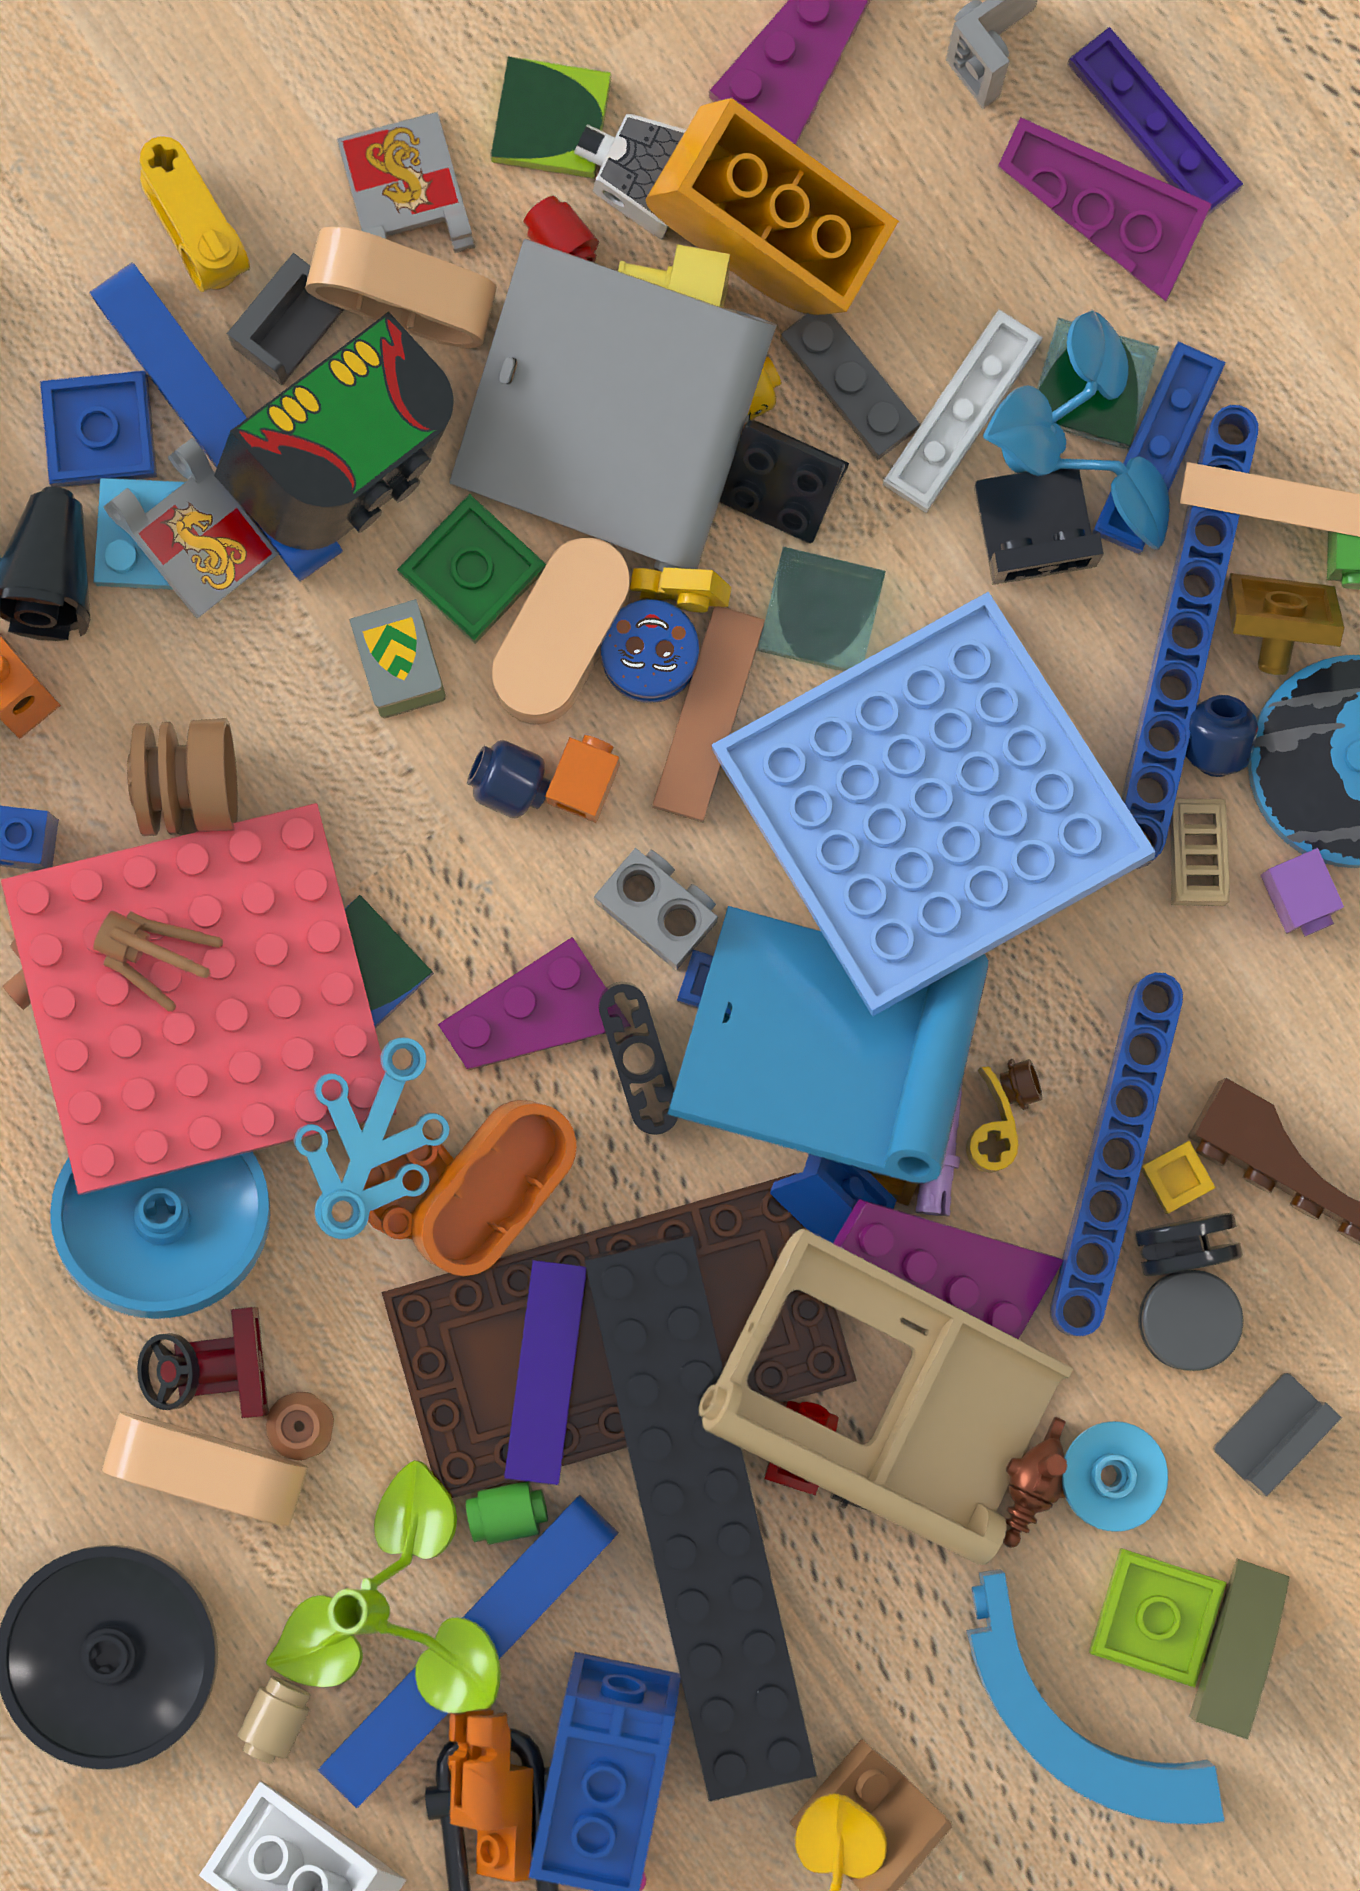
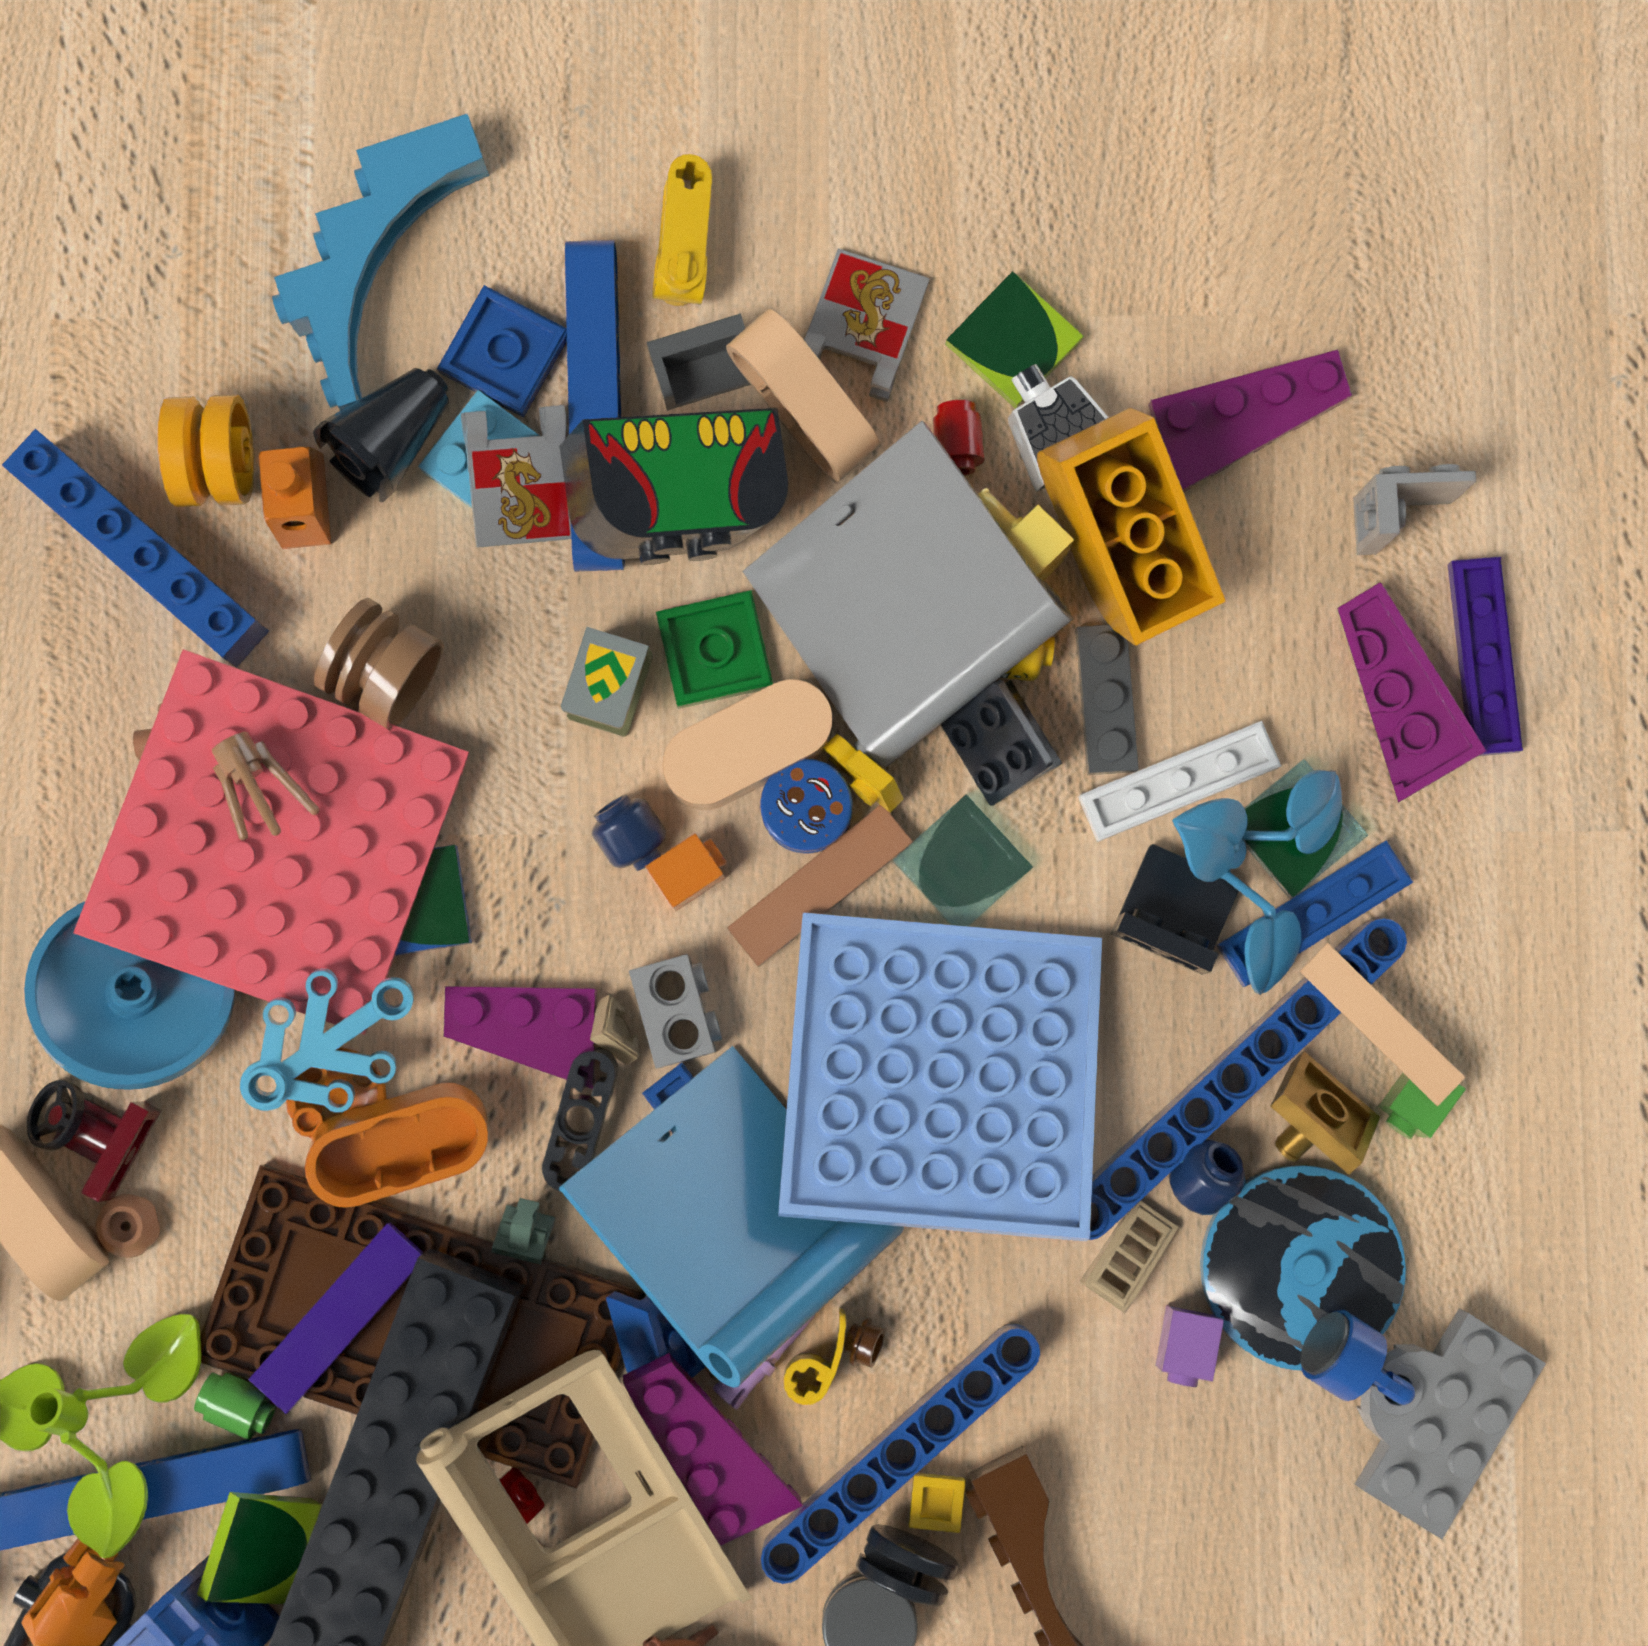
camera: 35 degrees right, 0 degrees up
(614, 964) = (612, 1032): none -> tan tile
(615, 1617) = (258, 1548): none -> dark green tile
(656, 1190) = (523, 1232): none -> sand green brick

